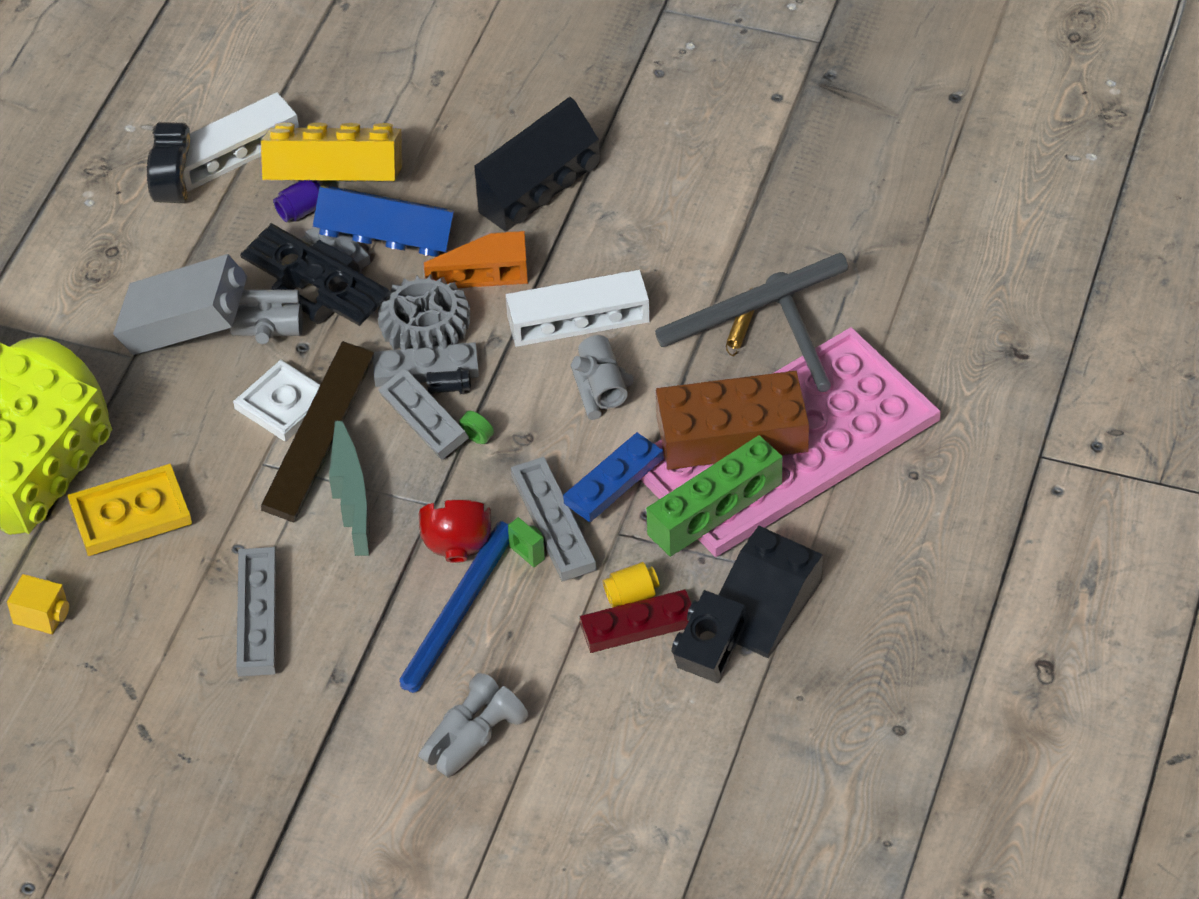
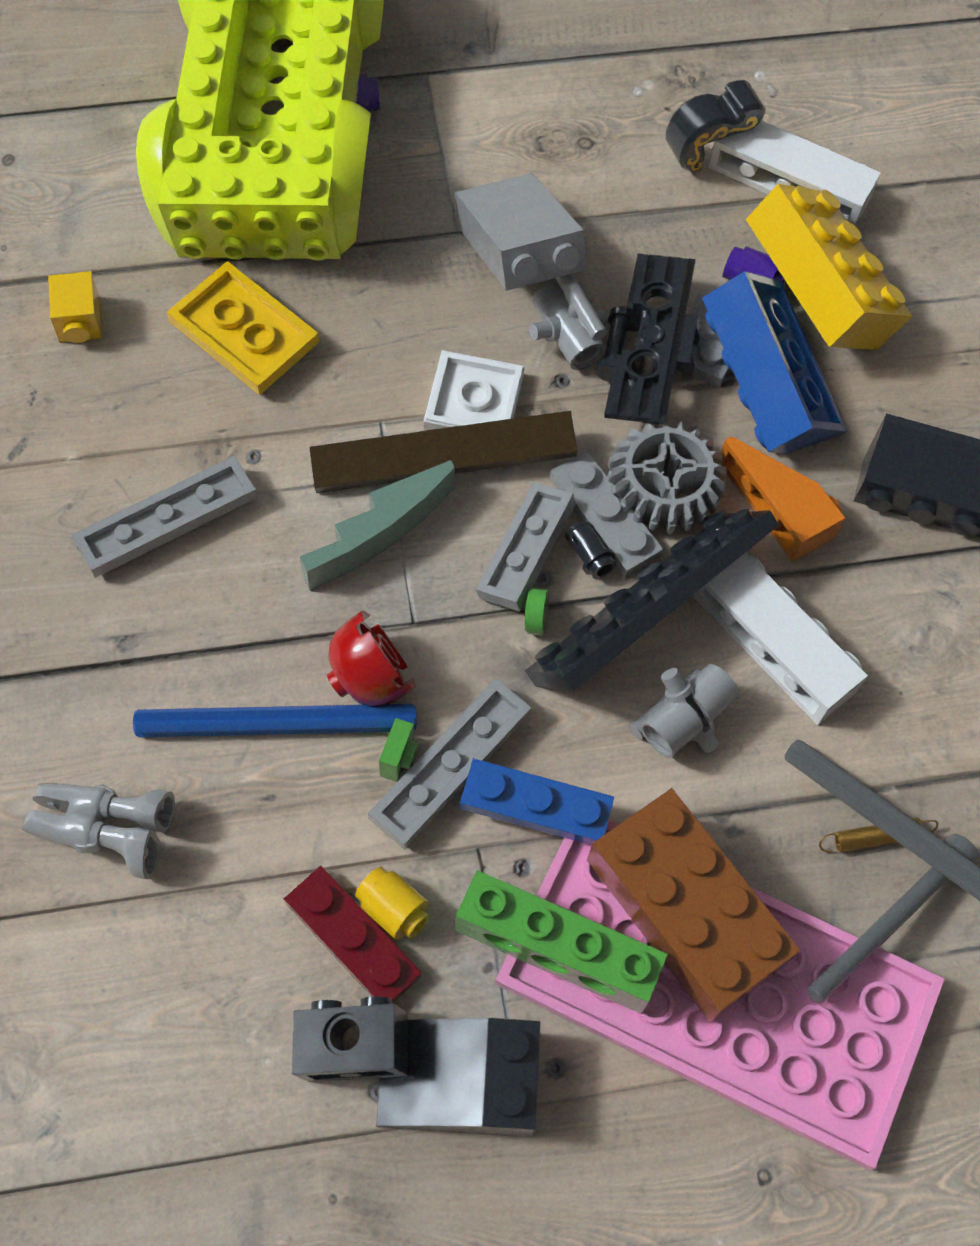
camera: 55 degrees right, 15 degrees up
(513, 357) = (658, 592): none -> black plate

